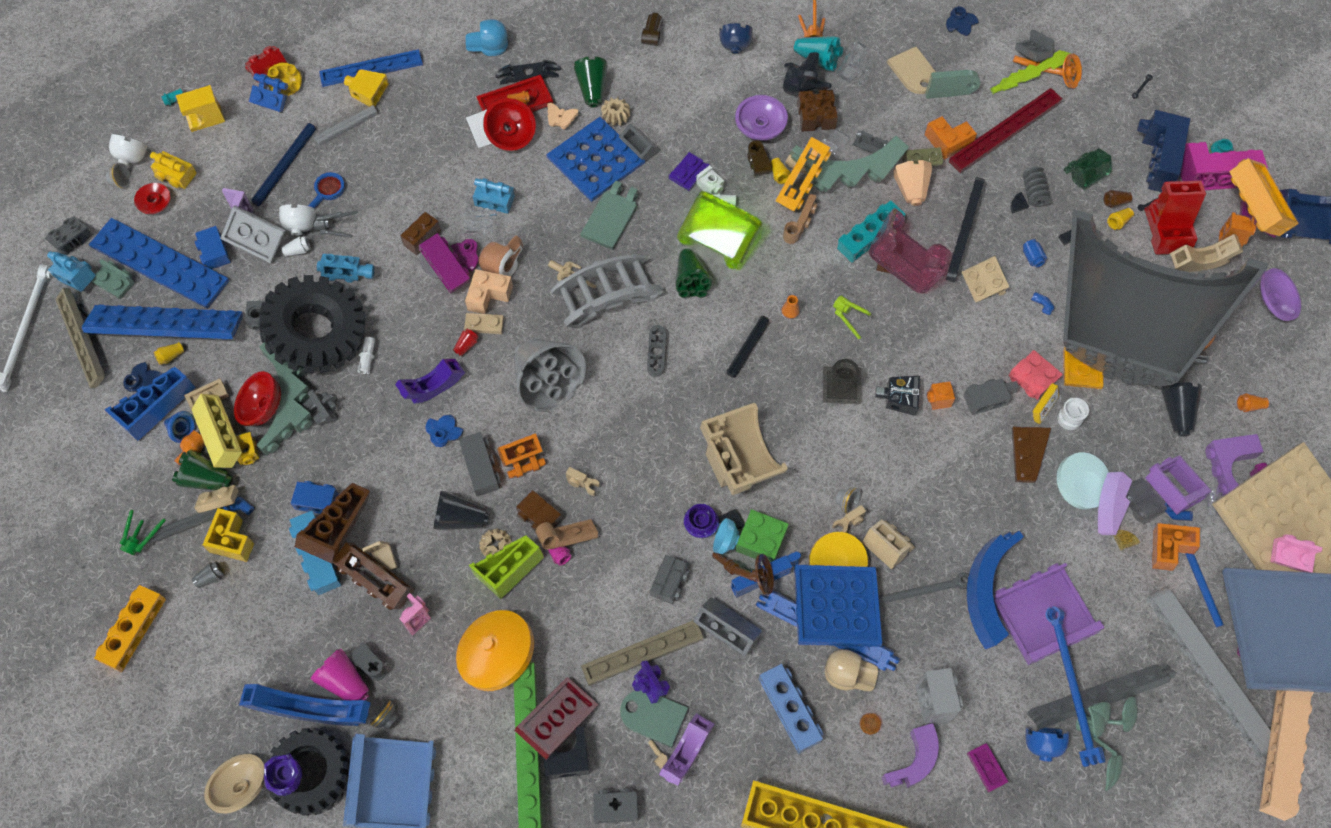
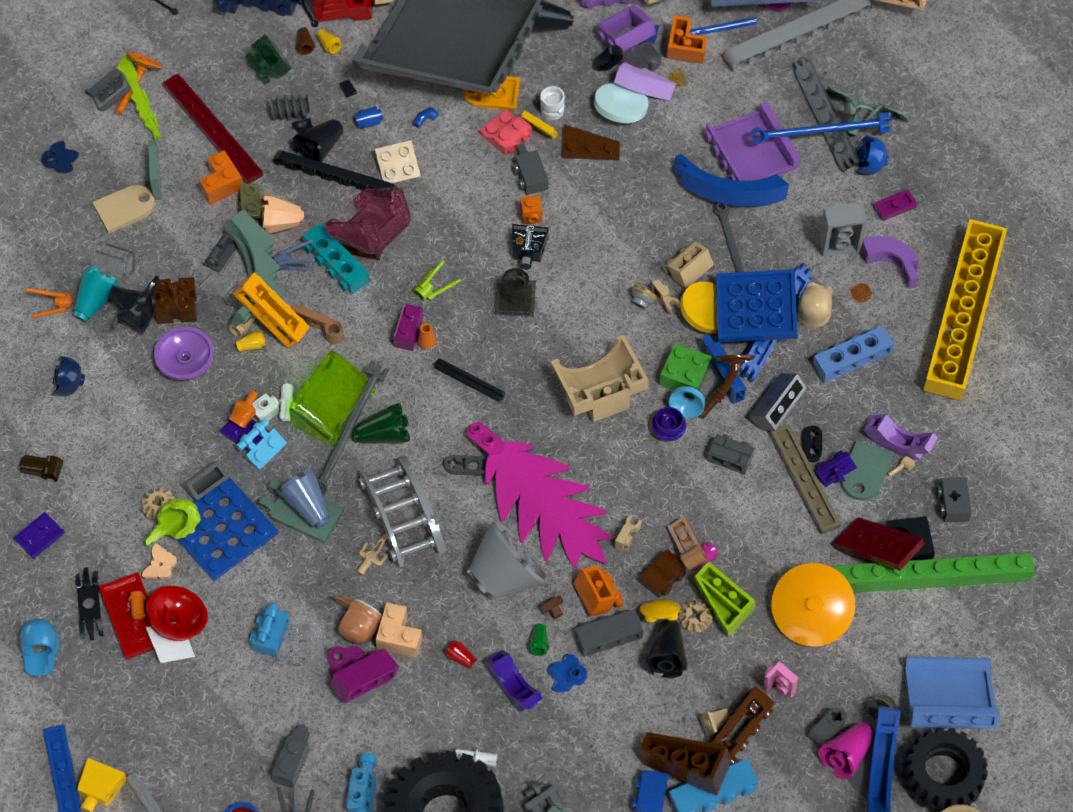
camera: 90 degrees left, 5 degrees down
(282, 774) = (959, 772): dark purple hair -> none
(376, 216) = (292, 757): none -> dark grey hinge
(420, 231) = (318, 707): reddish brown brick -> none
(475, 406) = (539, 641): none -> green cone
(484, 323) = (435, 638): tan plate -> none
(499, 508) = (660, 609): none -> yellow dish
(507, 416) = (552, 607): none -> reddish brown tile
(591, 34) = (39, 535): none -> dark purple plate
(591, 79) = (116, 528): dark green cone -> none
(595, 118) = (175, 519): none -> lime hair
(613, 212) = (306, 498): none -> sand blue cone
(622, 406) = (541, 496): none -> dark pink plant
(671, 186) = (266, 448): none -> medium azure plate
(683, 657) = (817, 443): none -> black beam
(690, 245) = (374, 376): none -> dark grey hinge
(701, 161) = (243, 410): none -> orange piece
(734, 516) = (662, 398): black tile -> none
(758, 158) = (237, 361): dark brown piece -> none
(804, 290) = (408, 327): none -> magenta brick
(864, 191) = (286, 261): none -> sand blue plant
(1001, 212) = (318, 140): none -> black cone
(1137, 467) = (608, 58): none -> black beam

